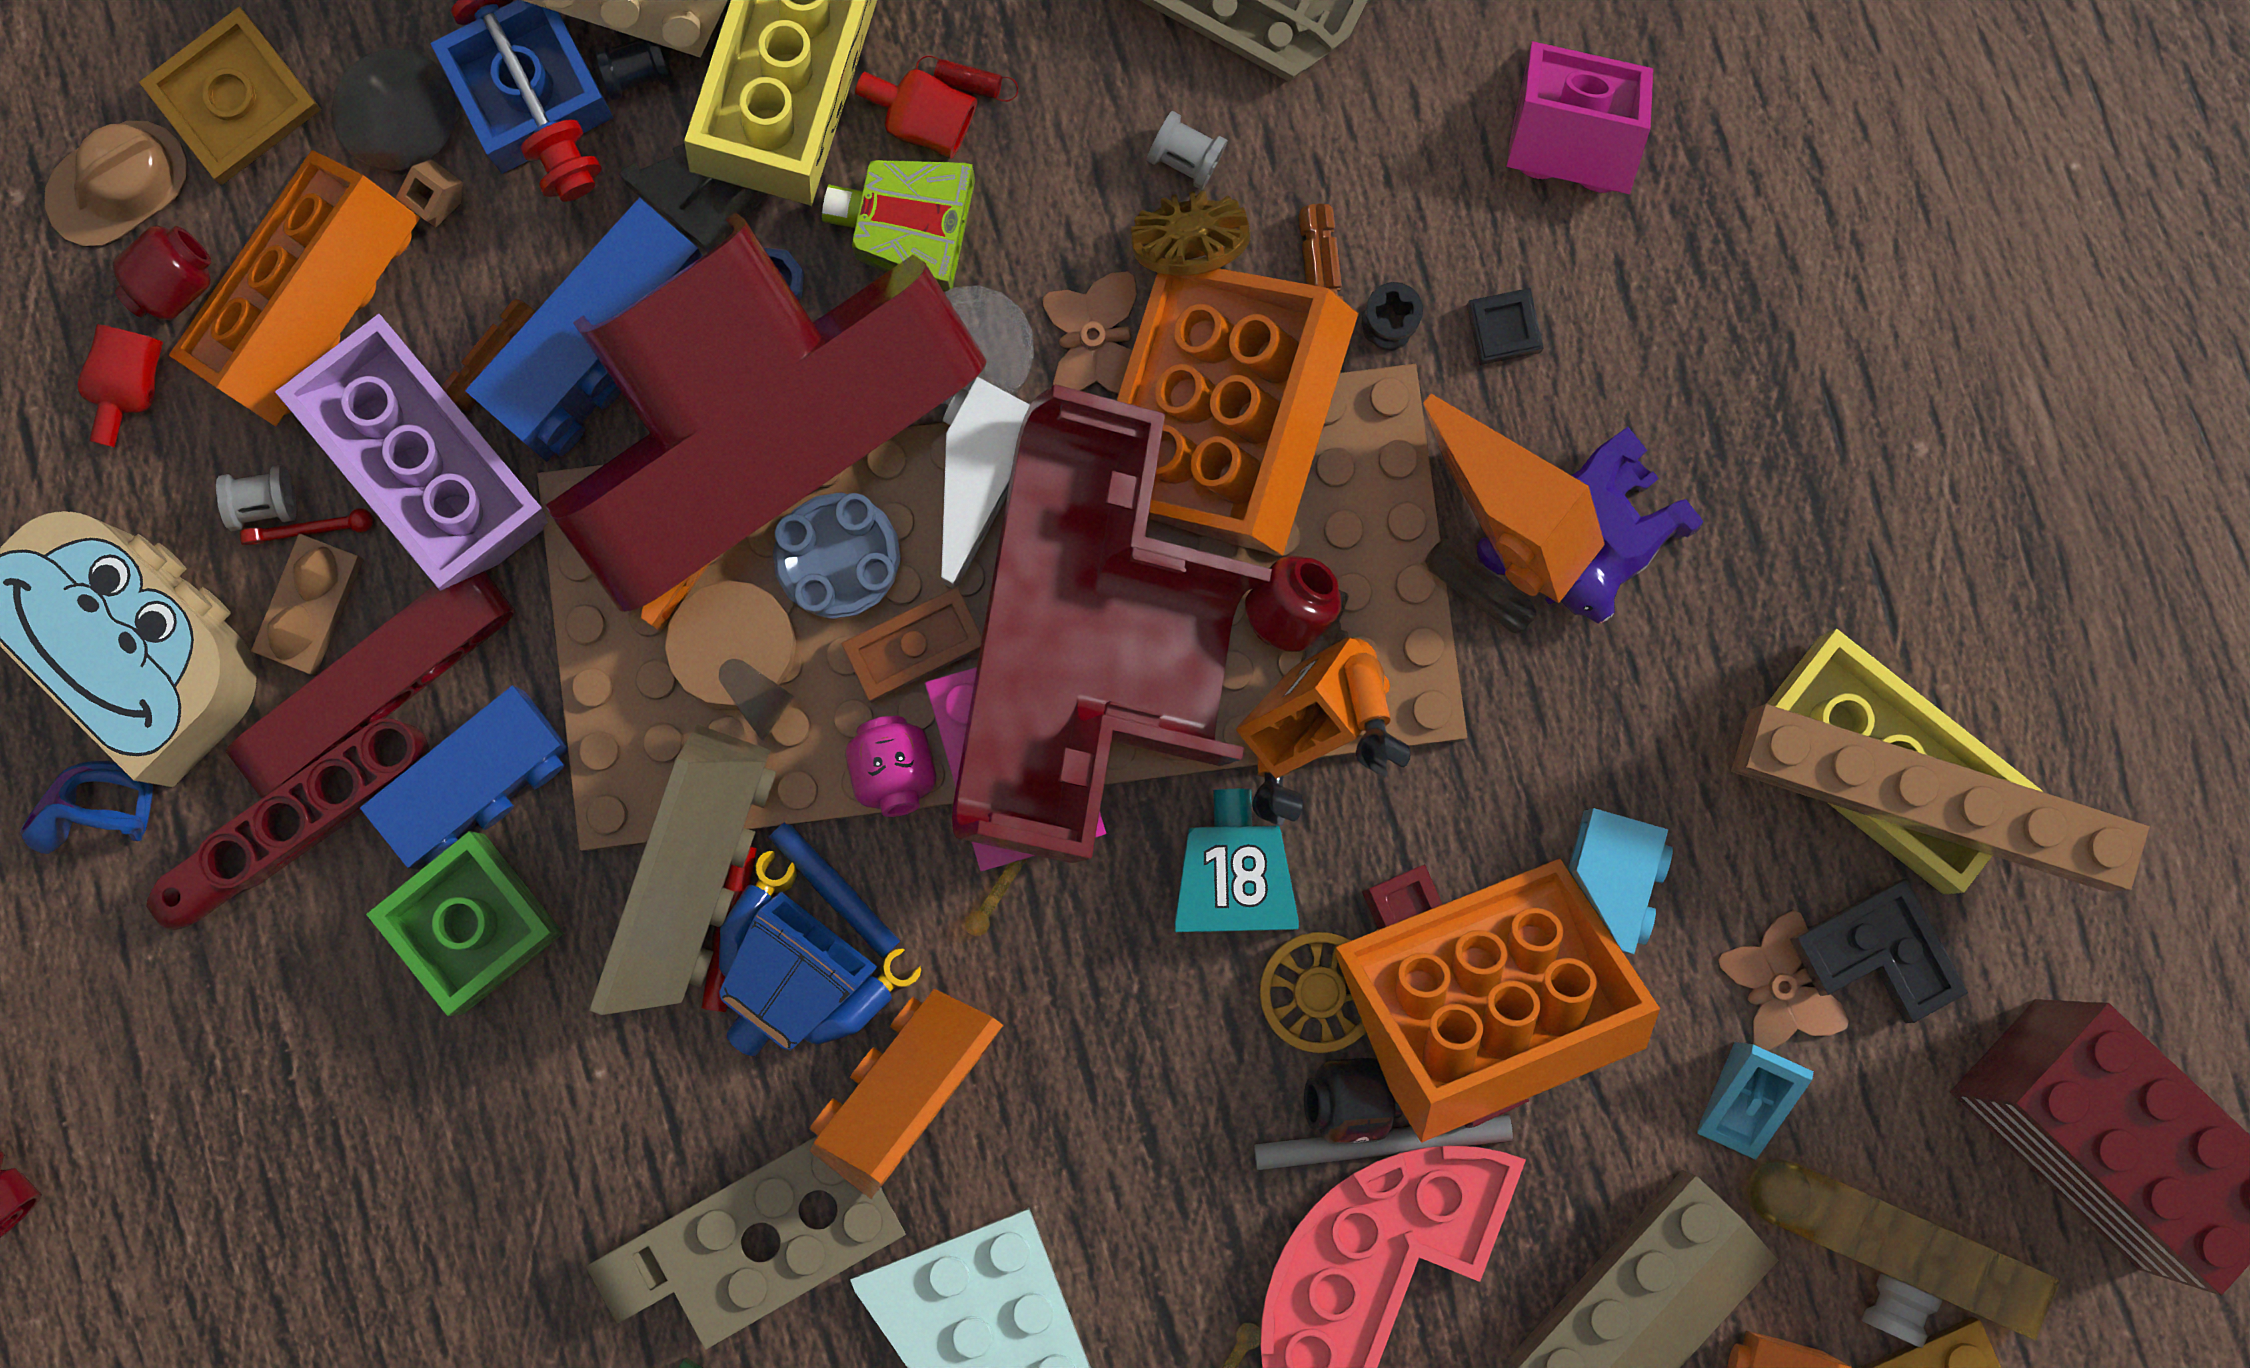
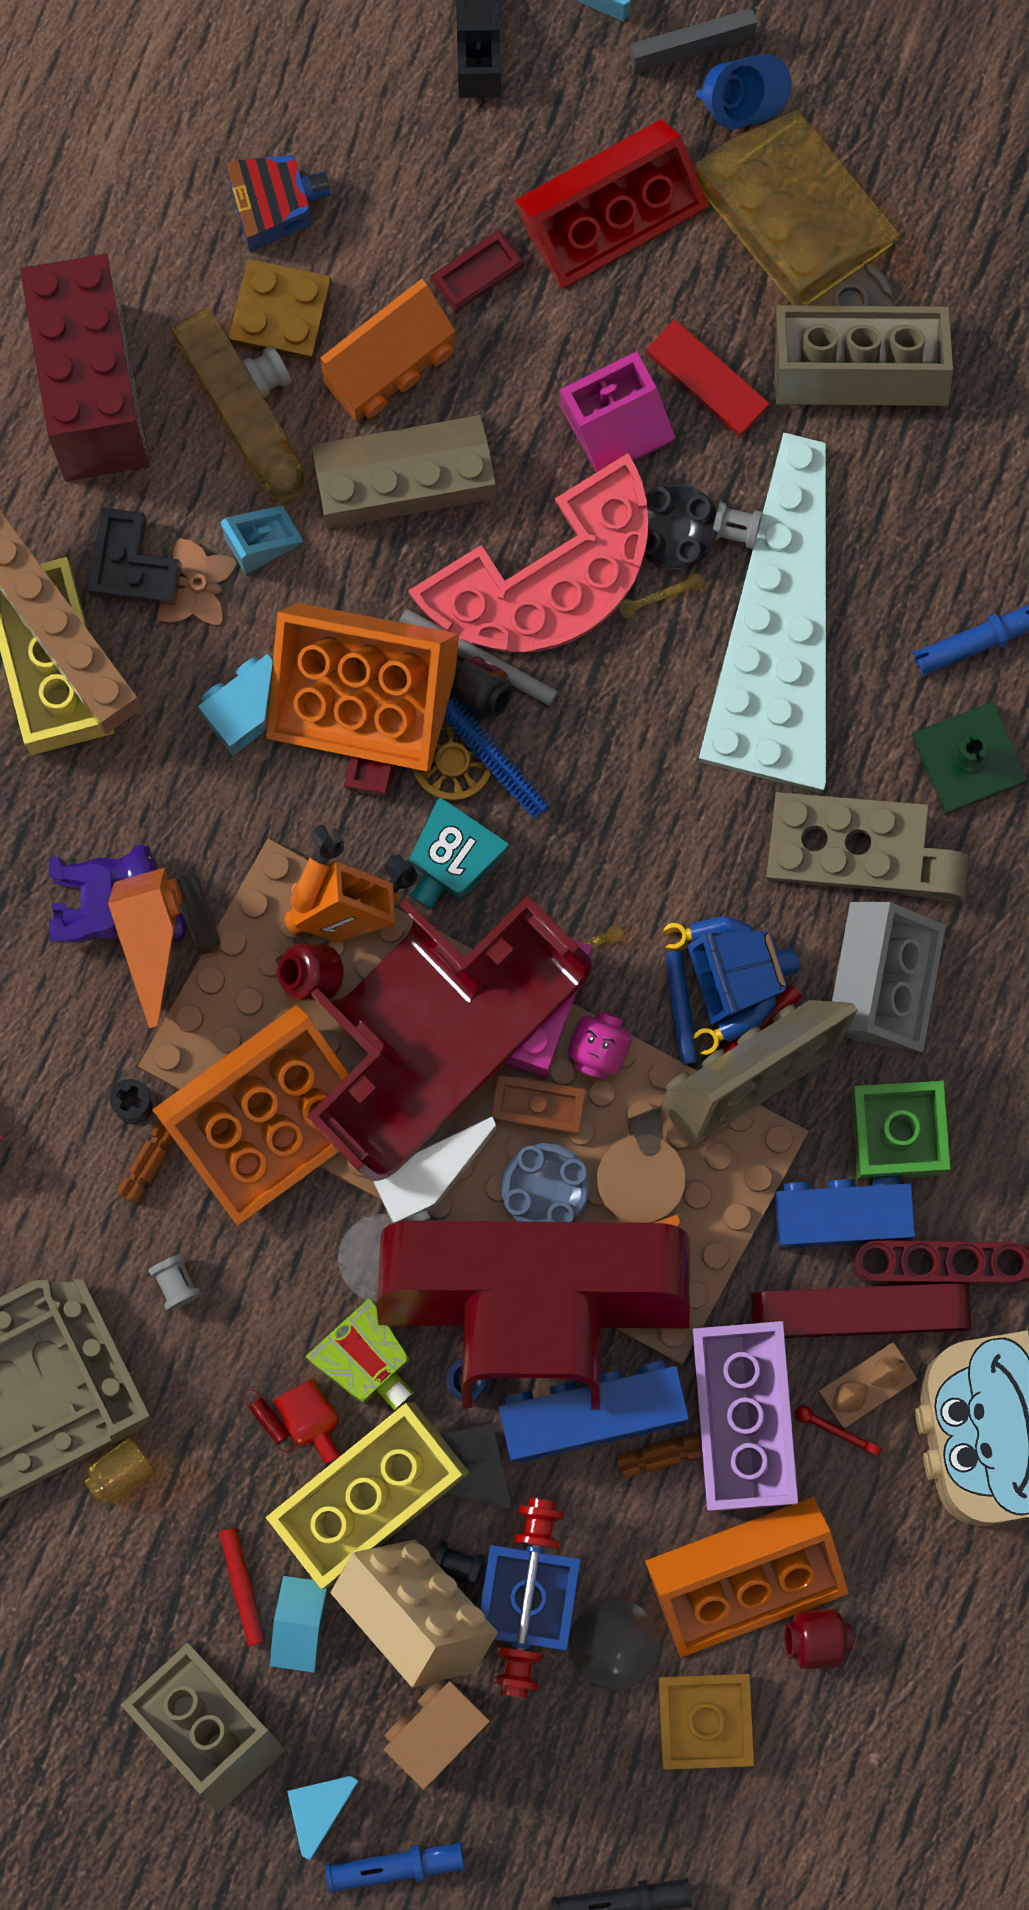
camera: 140 degrees left, 5 degrees down
(114, 182) = (810, 1723): medium nougat piece -> none
(118, 378) = (887, 1598): red piece -> none
(256, 498) = (854, 1466): light grey bush -> none
(428, 177) = (620, 1577): medium nougat piece -> none
(614, 1105) = (889, 973): none -> light grey slope
(901, 1089) = (719, 863): orange slope -> none
(1090, 333) = (308, 1217): nougat piece -> none
(1188, 232) = (210, 1228): pearl gold wheel -> none
(1268, 1026) = (495, 760): none -> blue axle
(1505, 326) = (70, 1053): black tile -> none

